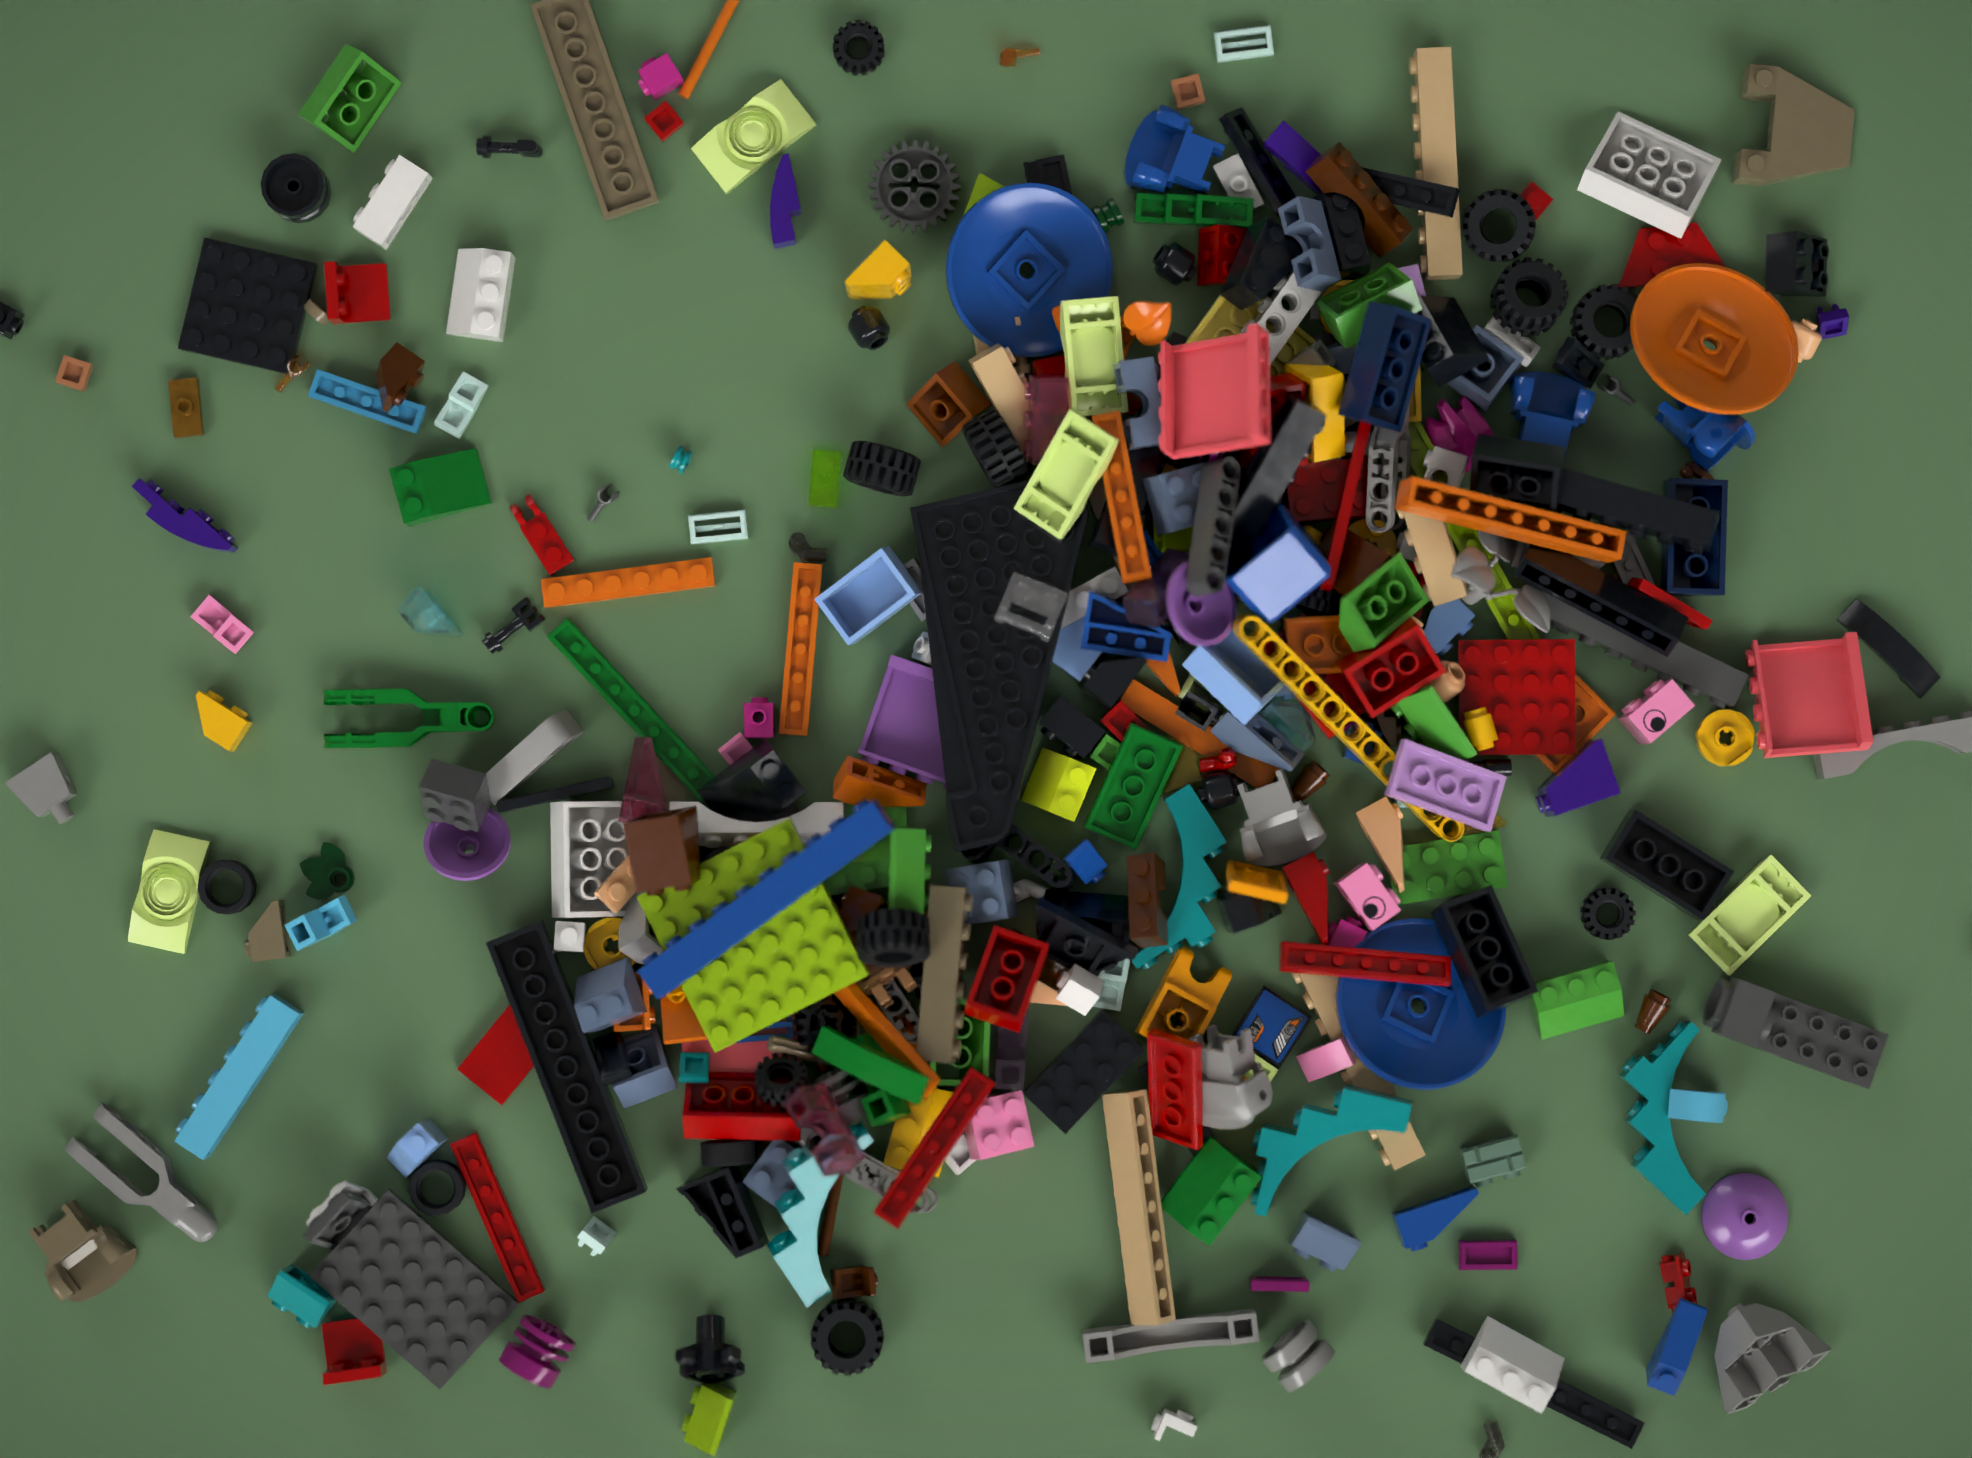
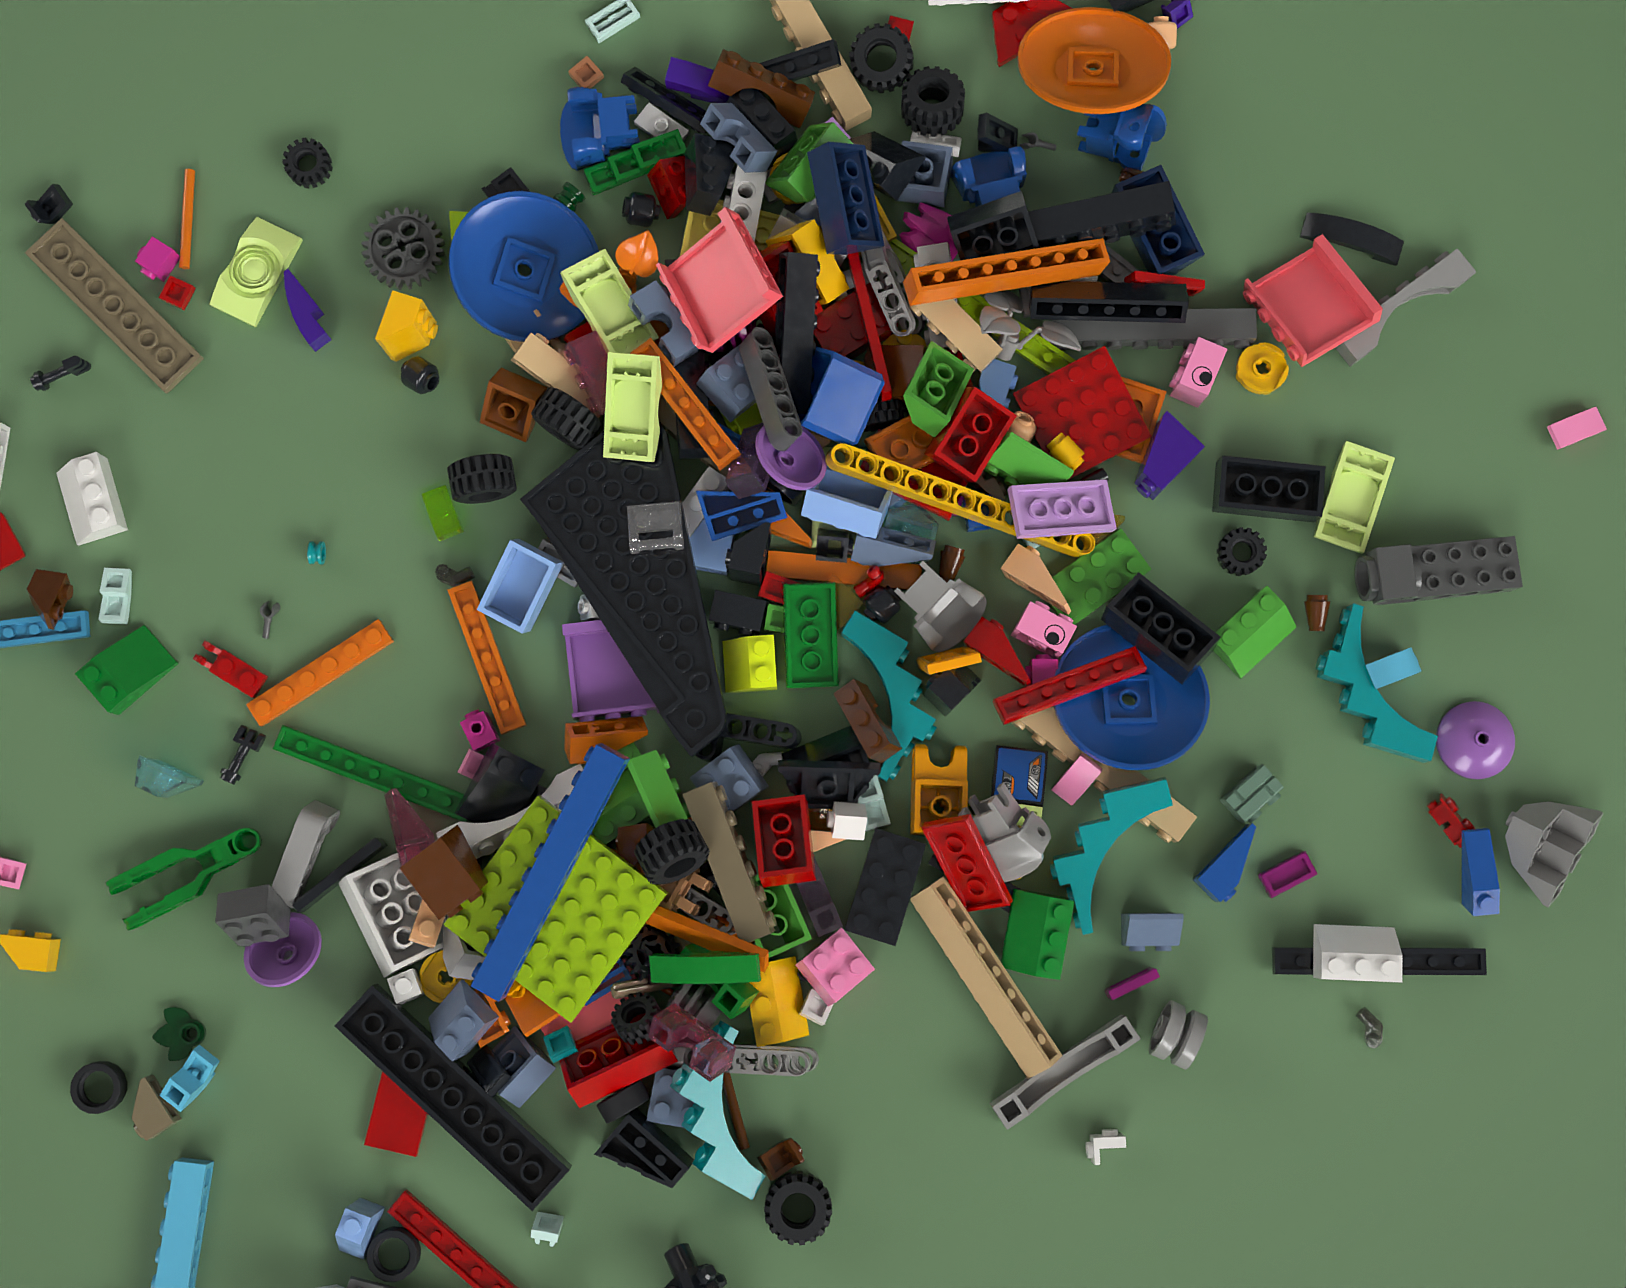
camera: 25 degrees left, 5 degrees down
(168, 891) = (50, 1118): yellowish green slope -> none
(718, 538) = (379, 600): light aqua tile -> none
(934, 1148) = (792, 1012): red tile -> none
(1009, 55) = (431, 111): clear orange hand -> none
(1086, 863) = (802, 714): blue slope -> none
(1584, 326) = (1002, 72): black tyre -> none

